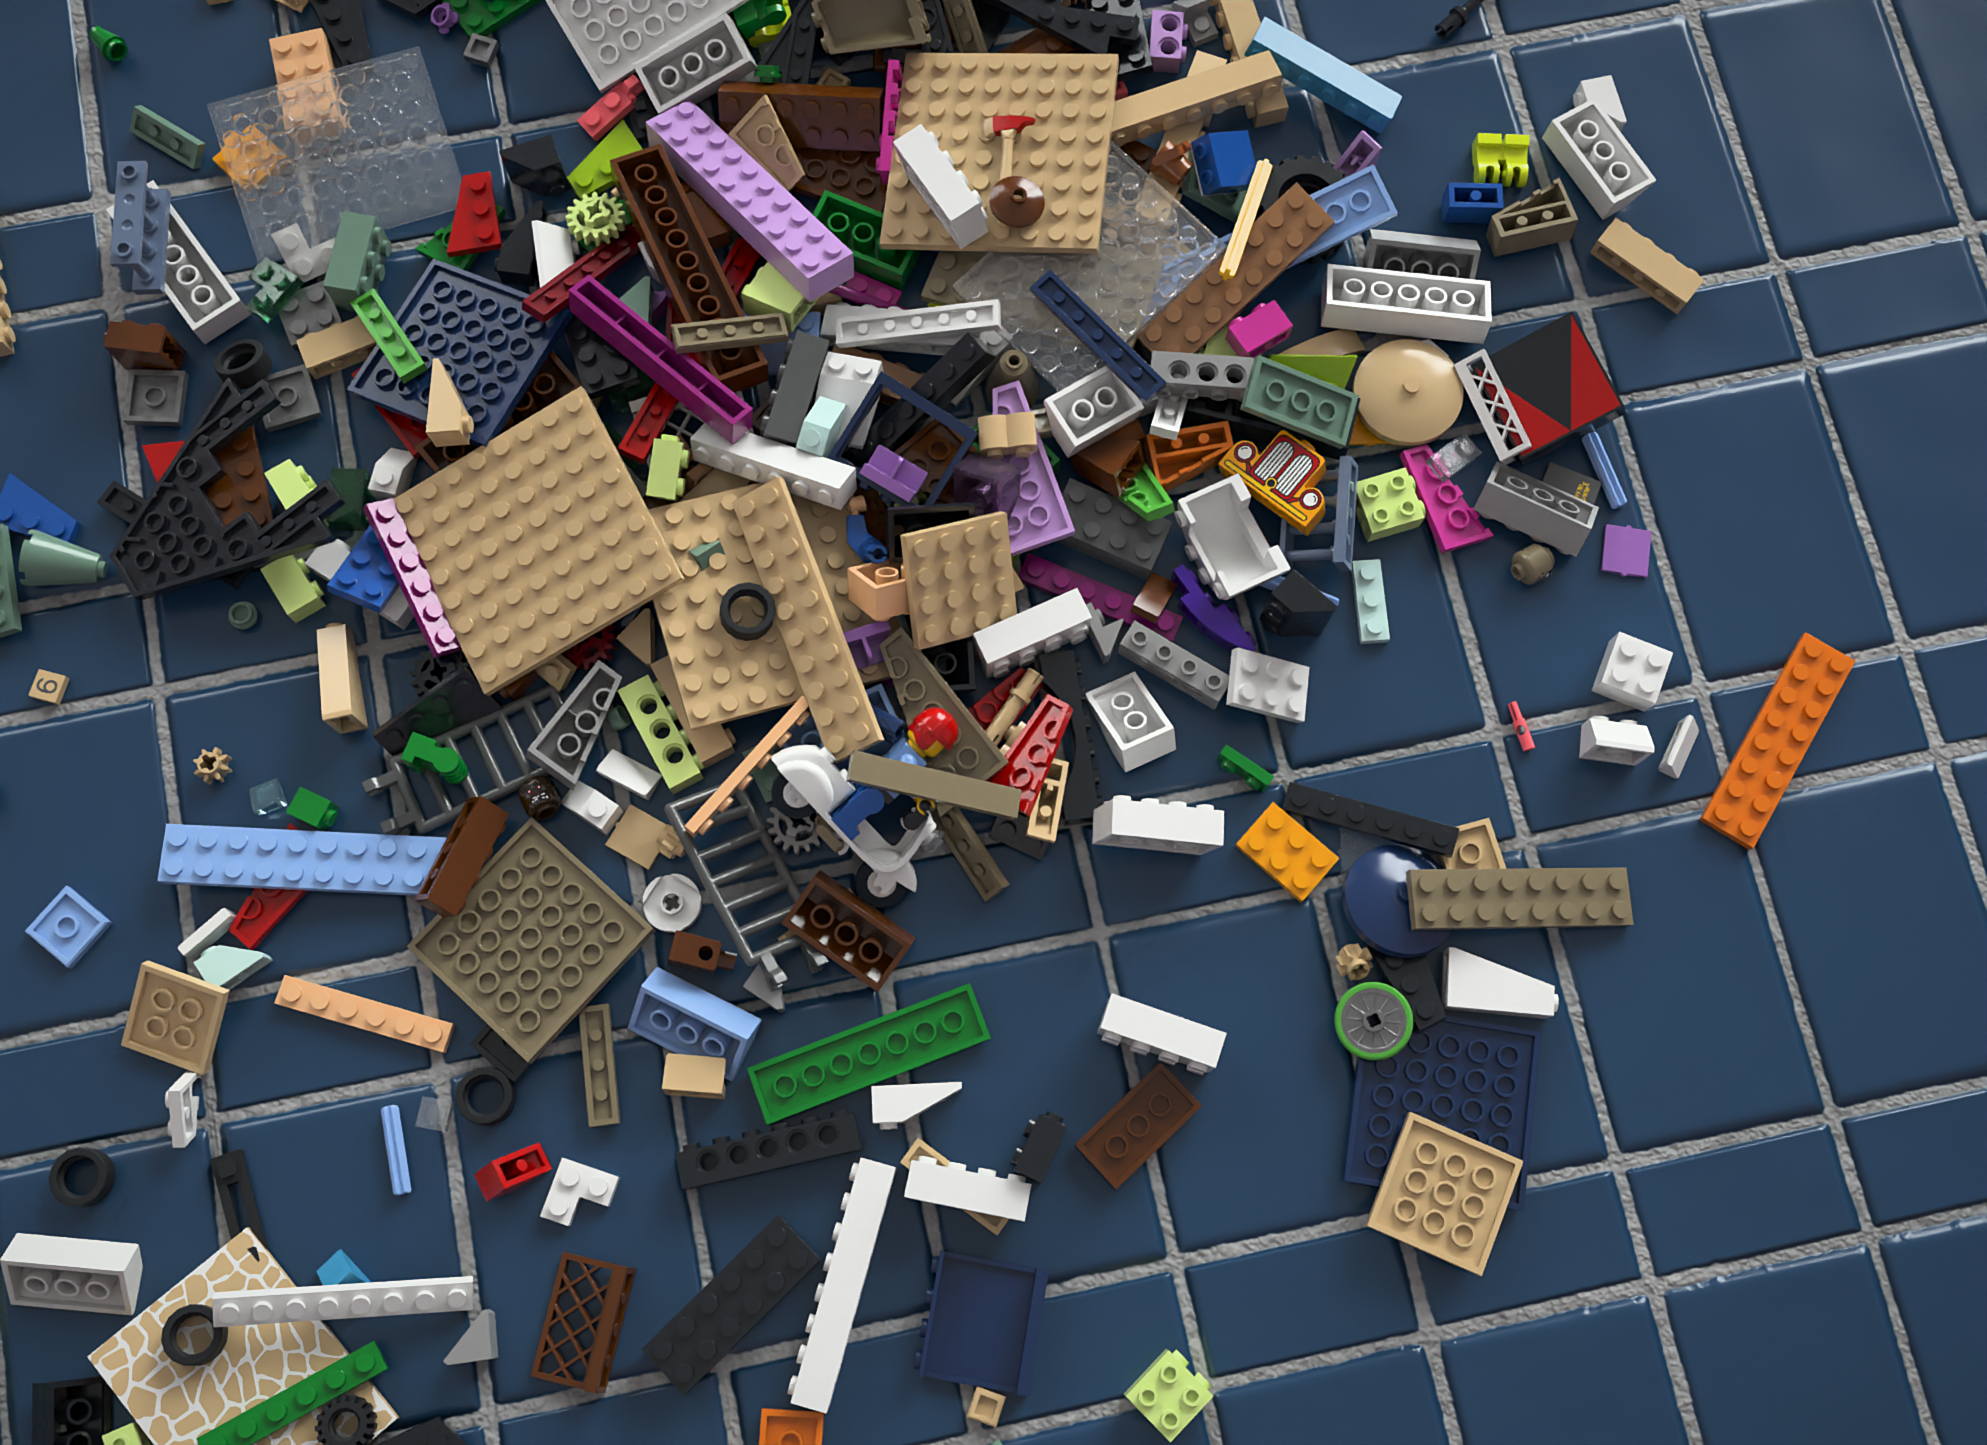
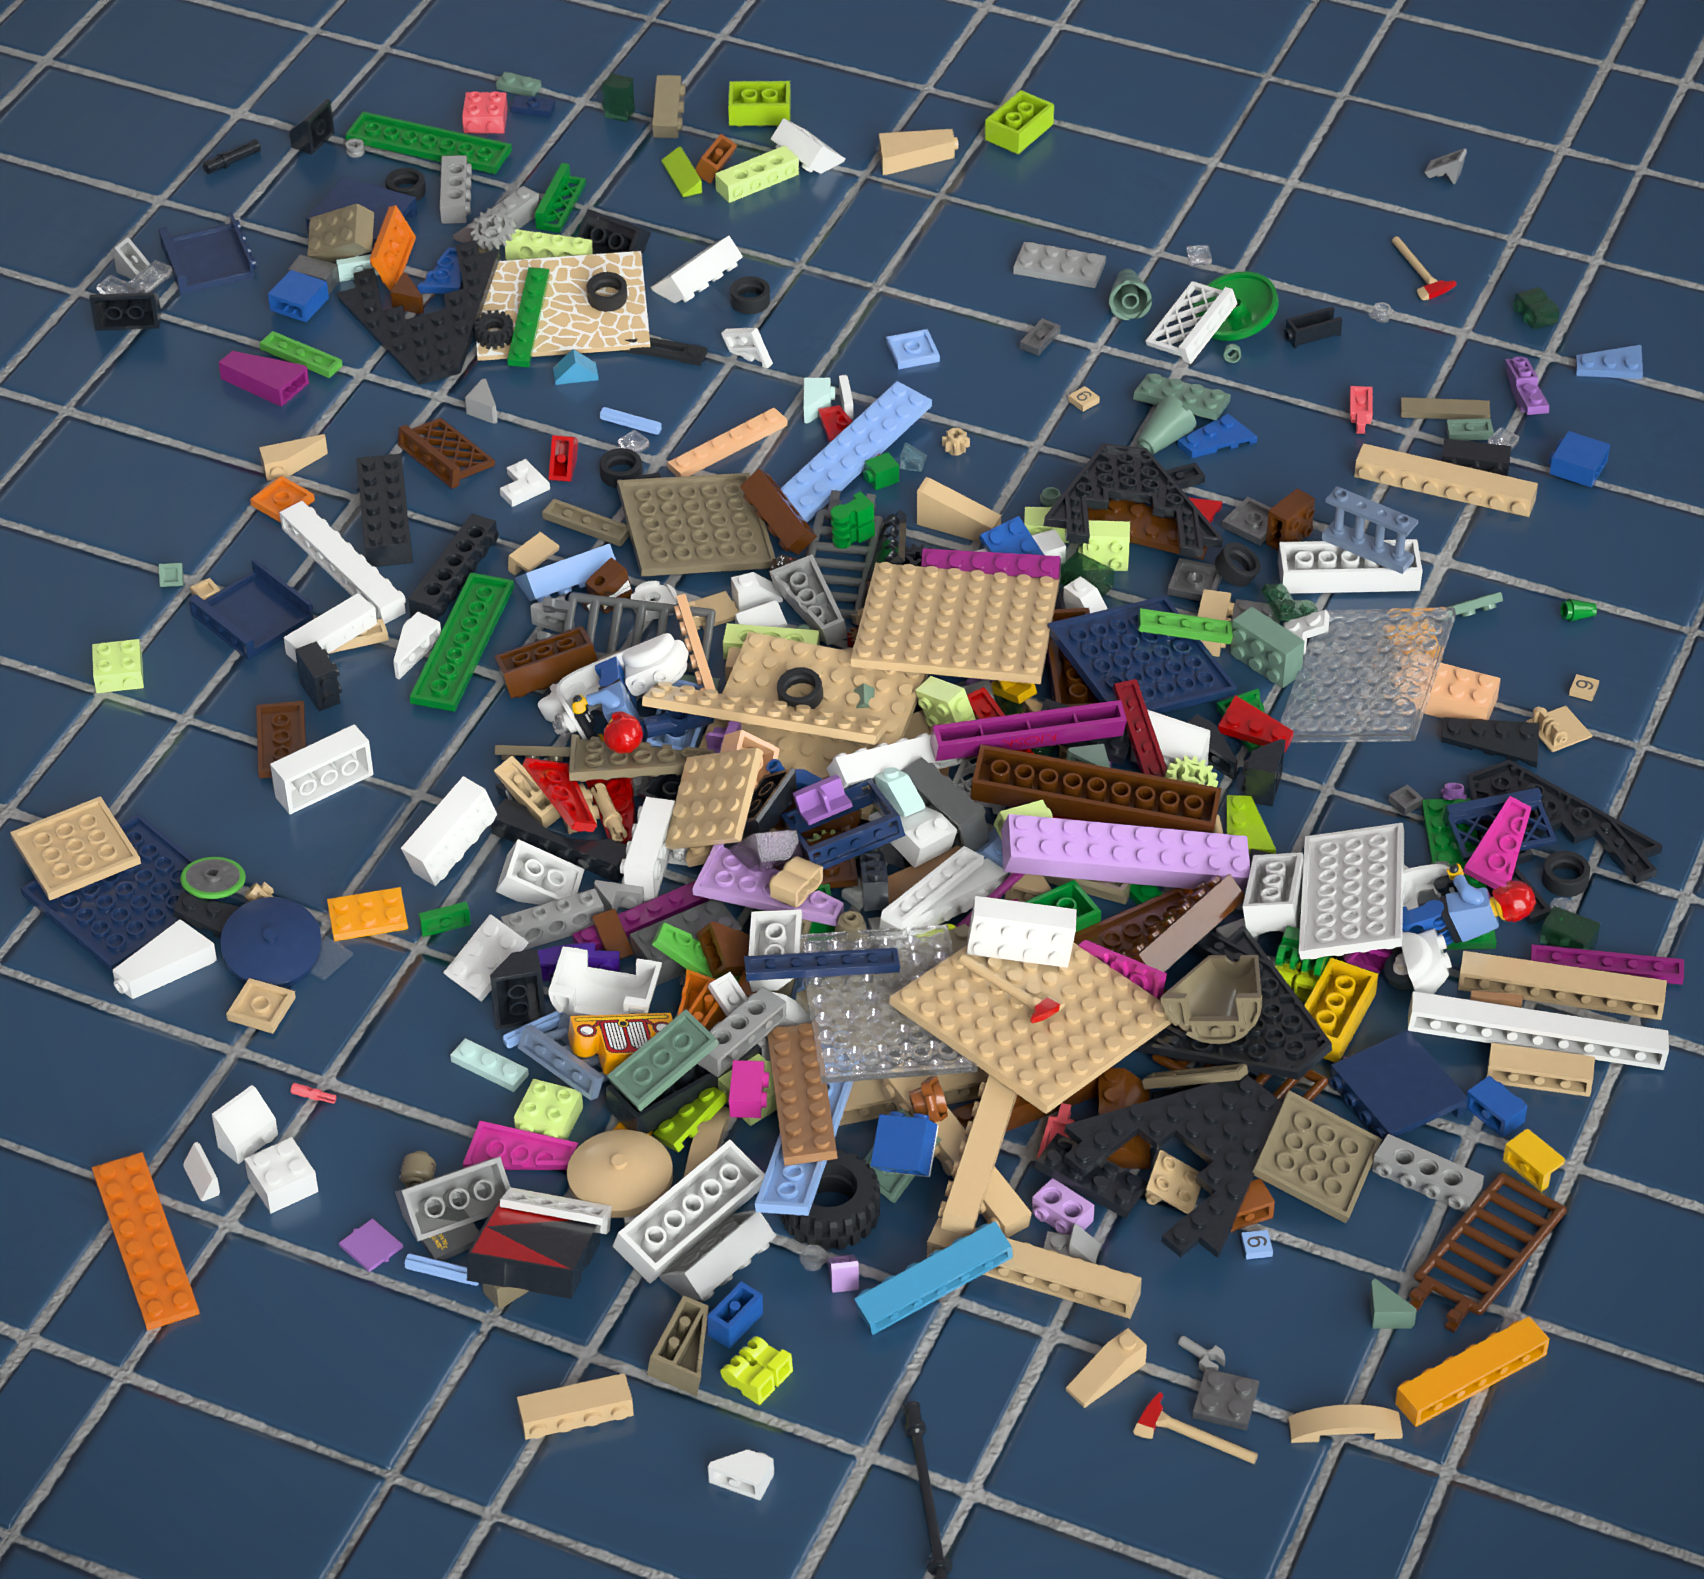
camera: 130 degrees right, 30 degrees down
(175, 1017) = (804, 359): tan plate -> none
(342, 1301) = (560, 354): white plate -> none
(447, 417) = (1093, 616): tan slope -> none
(611, 107) = (1288, 838): coral hinge -> none
(729, 333) = (1011, 769): dark tan tile -> none
(767, 73) = (1229, 921): green plate -> none
(767, 143) = (1167, 891): tan wing -> none
(933, 785) = (583, 705): dark tan tile -> none
(1015, 211) = (974, 979): reddish brown dish -> none
(1245, 220) = (838, 1111): axle -> none
(1370, 820) = (339, 963): black plate -> none
(1453, 457) = (544, 1170): clear plate -> none
(1518, 898) = (201, 1002): dark tan plate -> none
(1598, 158) = (695, 1421): white slope -> none

